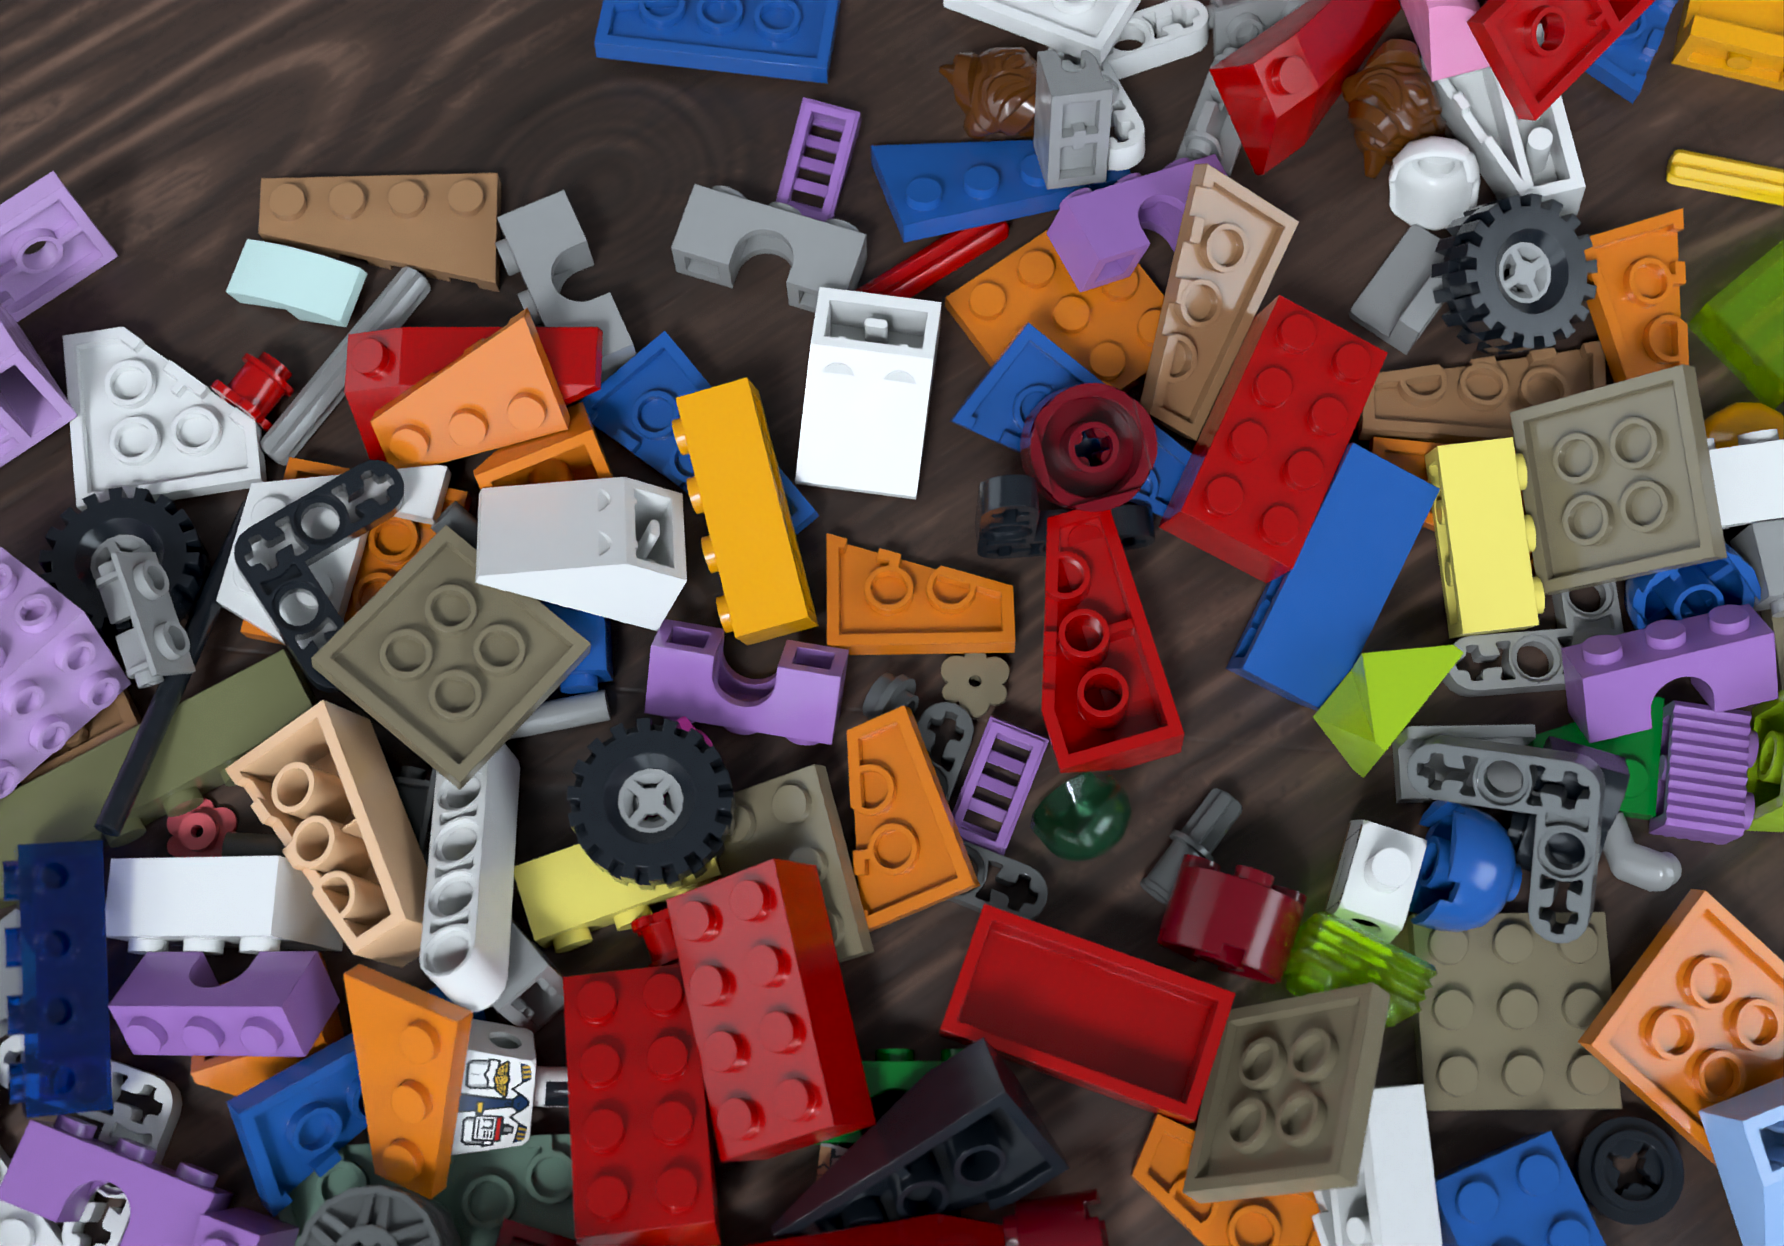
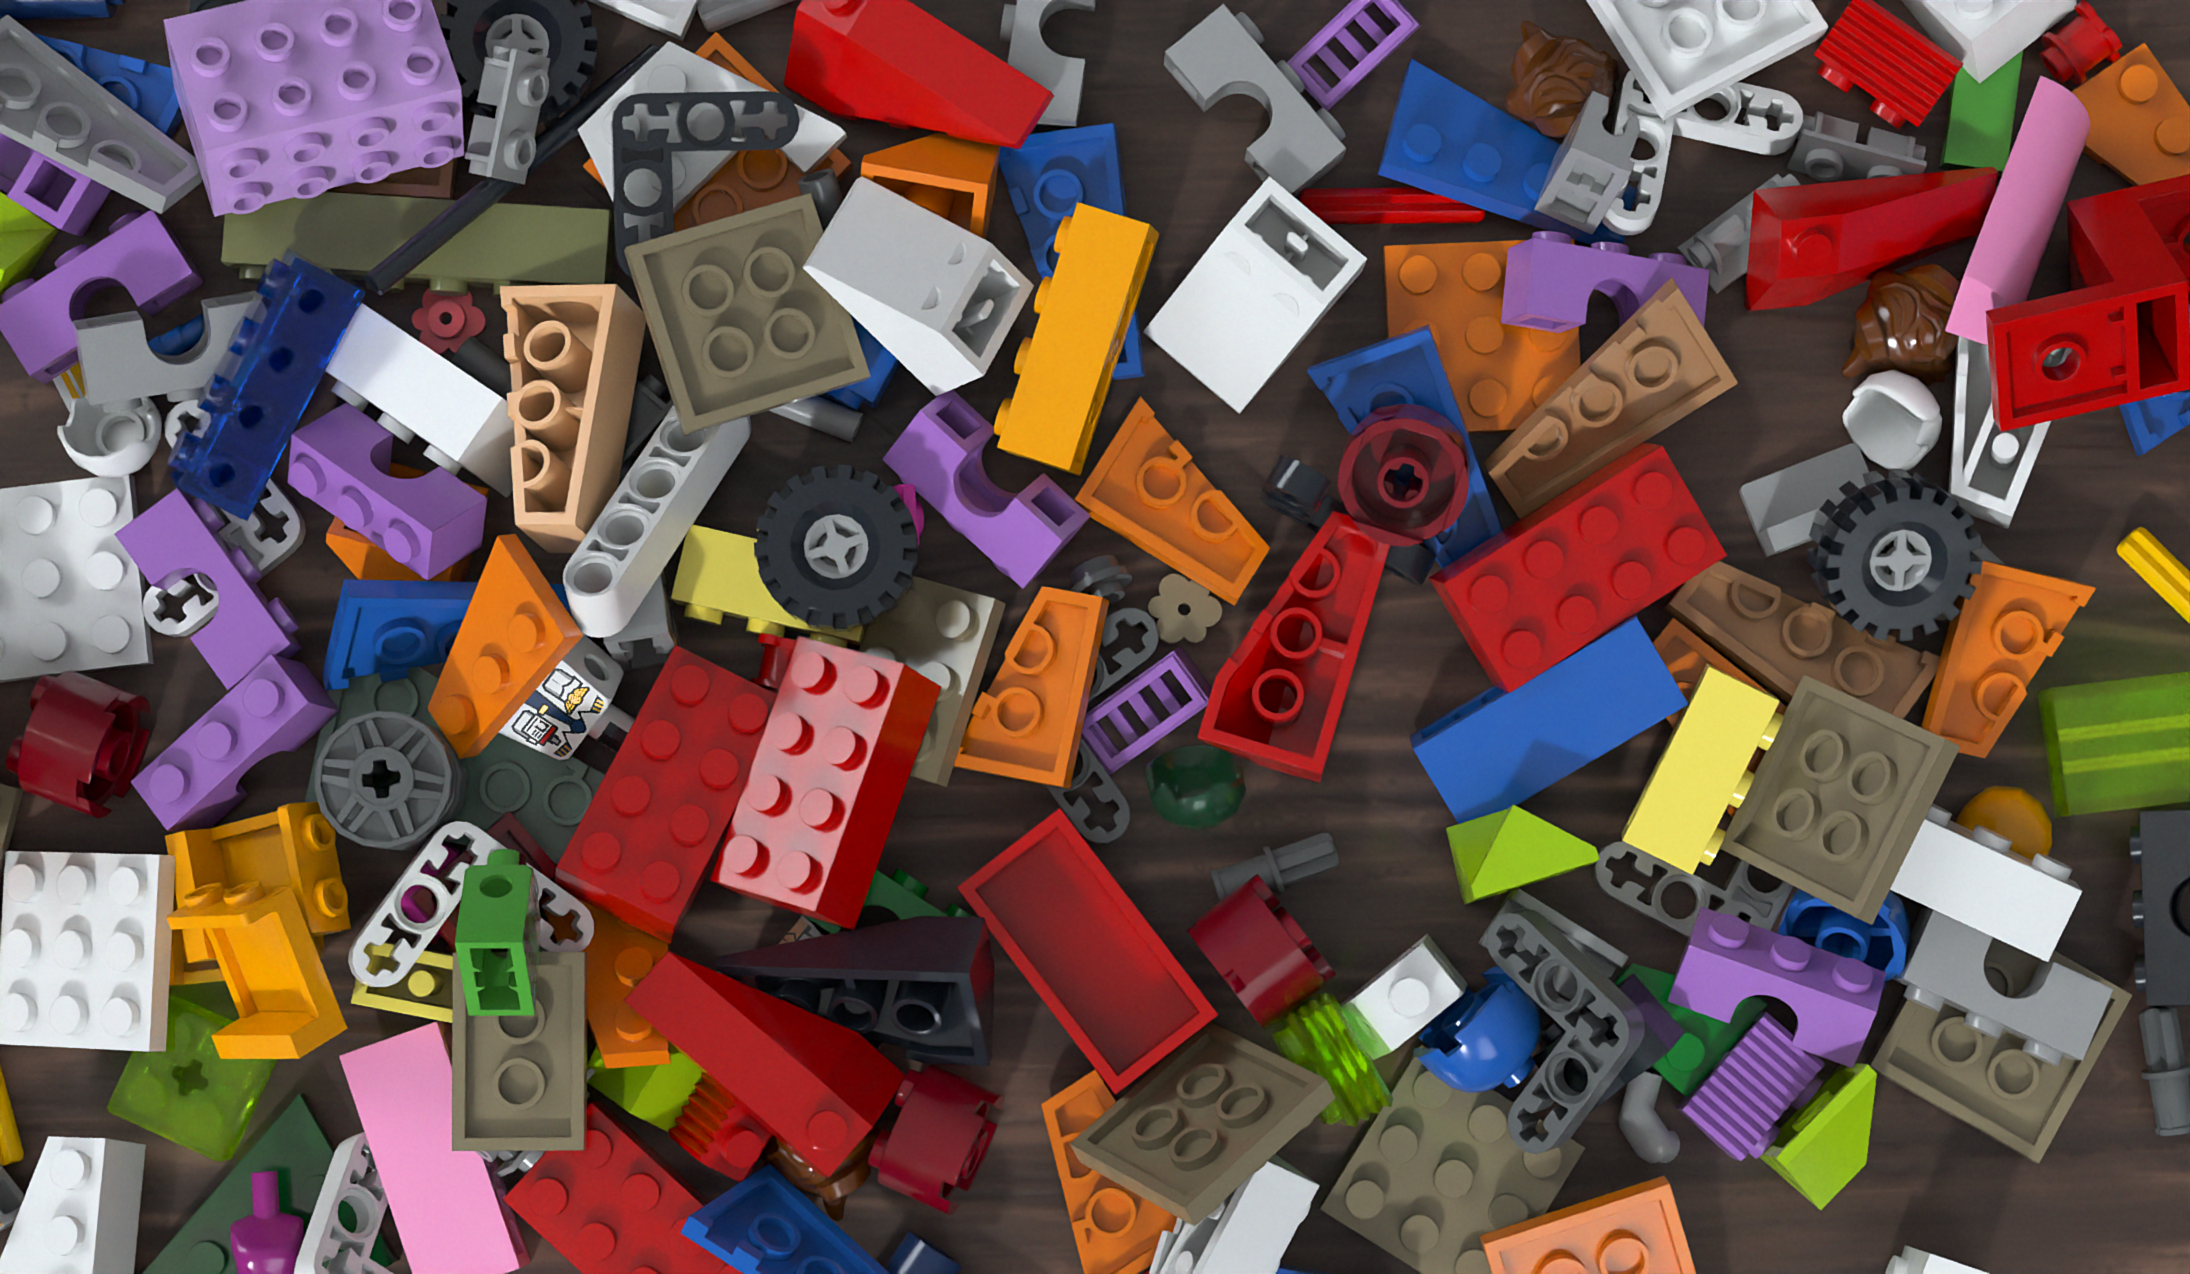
camera: 30 degrees right, 10 degrees up
(478, 403) = (907, 97): orange wing -> none

